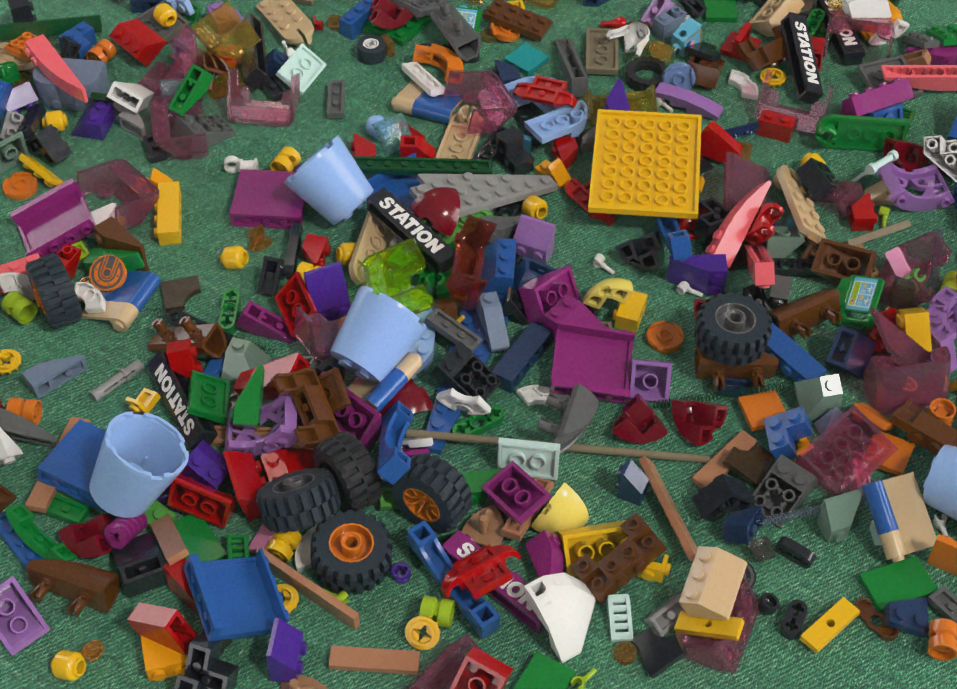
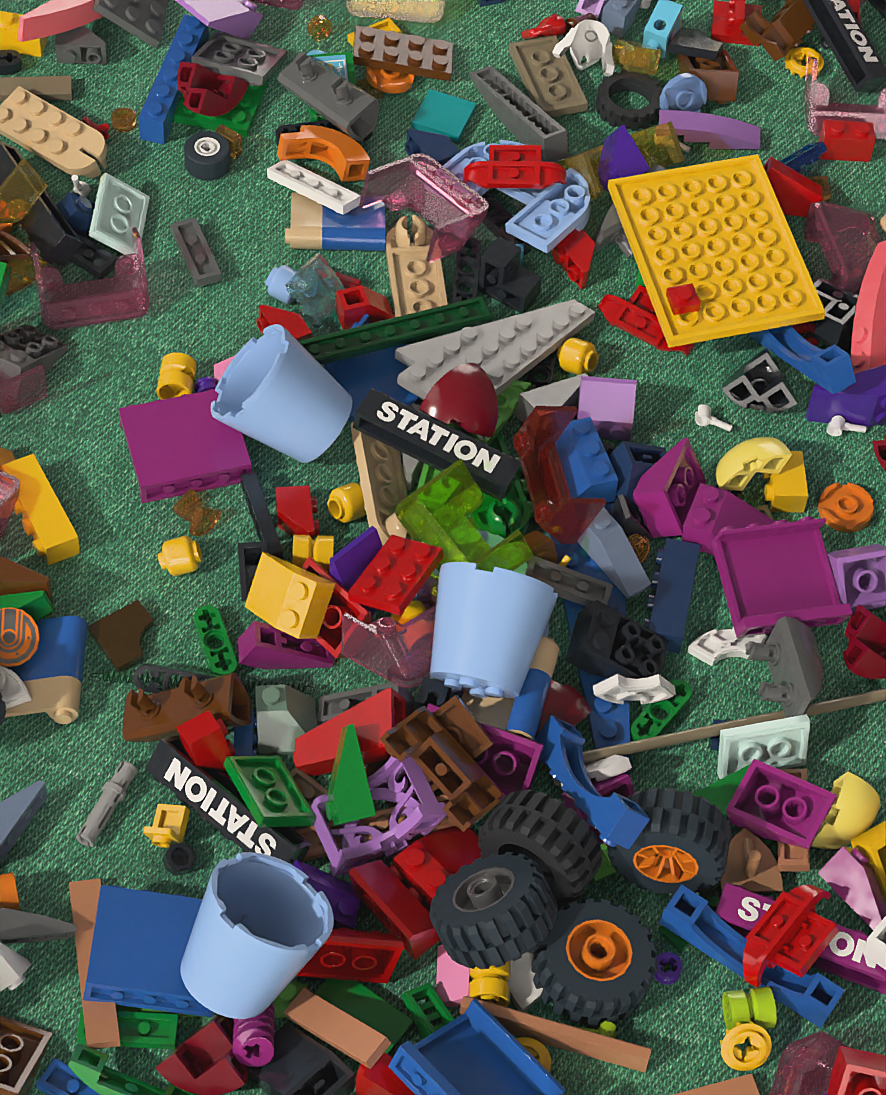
camera: 25 degrees left, 5 degrees up
(240, 164) = (108, 400): white connector -> none
(279, 294) = (289, 597): none -> yellow slope
(338, 292) = (396, 574): none -> red plate
(513, 324) = (640, 545): none -> clear orange tile
(556, 171) = (581, 289): light orange slope -> none
(607, 185) = (683, 299): none -> red plate
(744, 84) = (776, 88): white tile -> none

